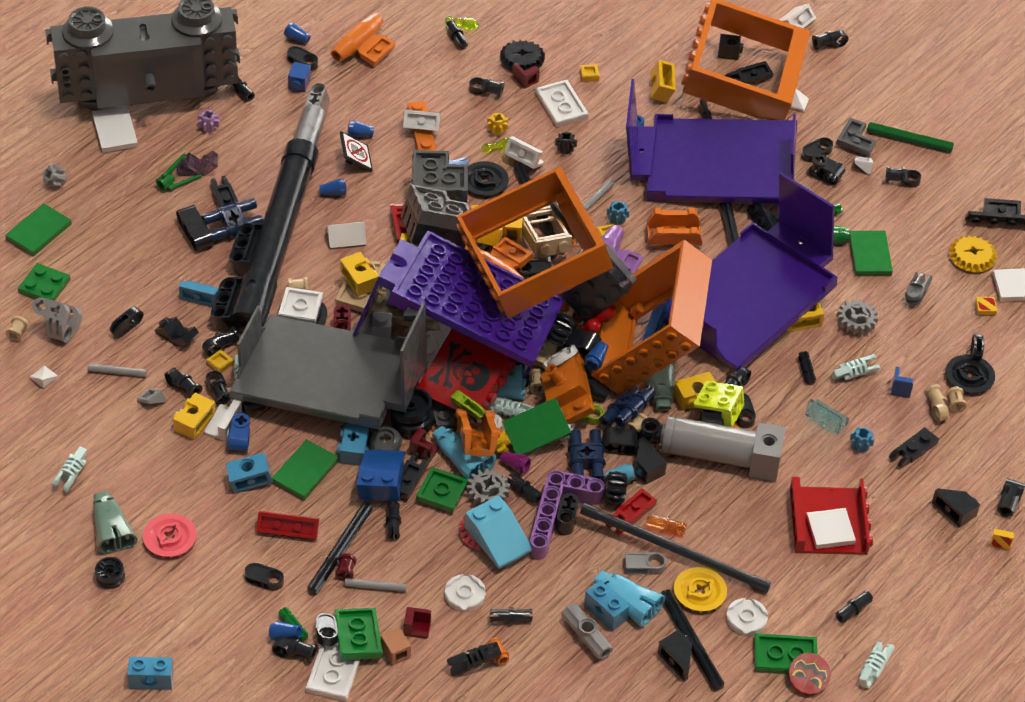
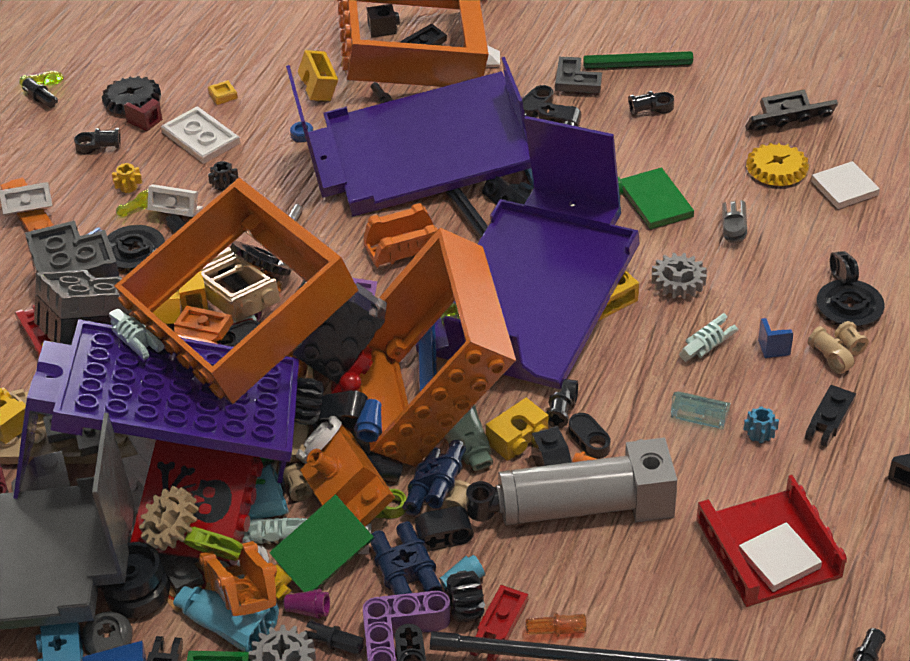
camera: 15 degrees left, 5 degrees down
(419, 444) = (160, 624): dark red panel -> none
(445, 379) = (168, 518): none -> tan gear
(460, 251) = (134, 333): none -> light aqua hinge
(618, 212) = (324, 233): dark azure gear -> none
(649, 462) = (495, 545): black slope -> none
(722, 398) = (559, 427): neon yellow bracket -> none
(807, 367) = (645, 356): black axle -> none
(864, 163) = (600, 101): white slope -> none
(986, 306) = (825, 218): yellow tile -> none

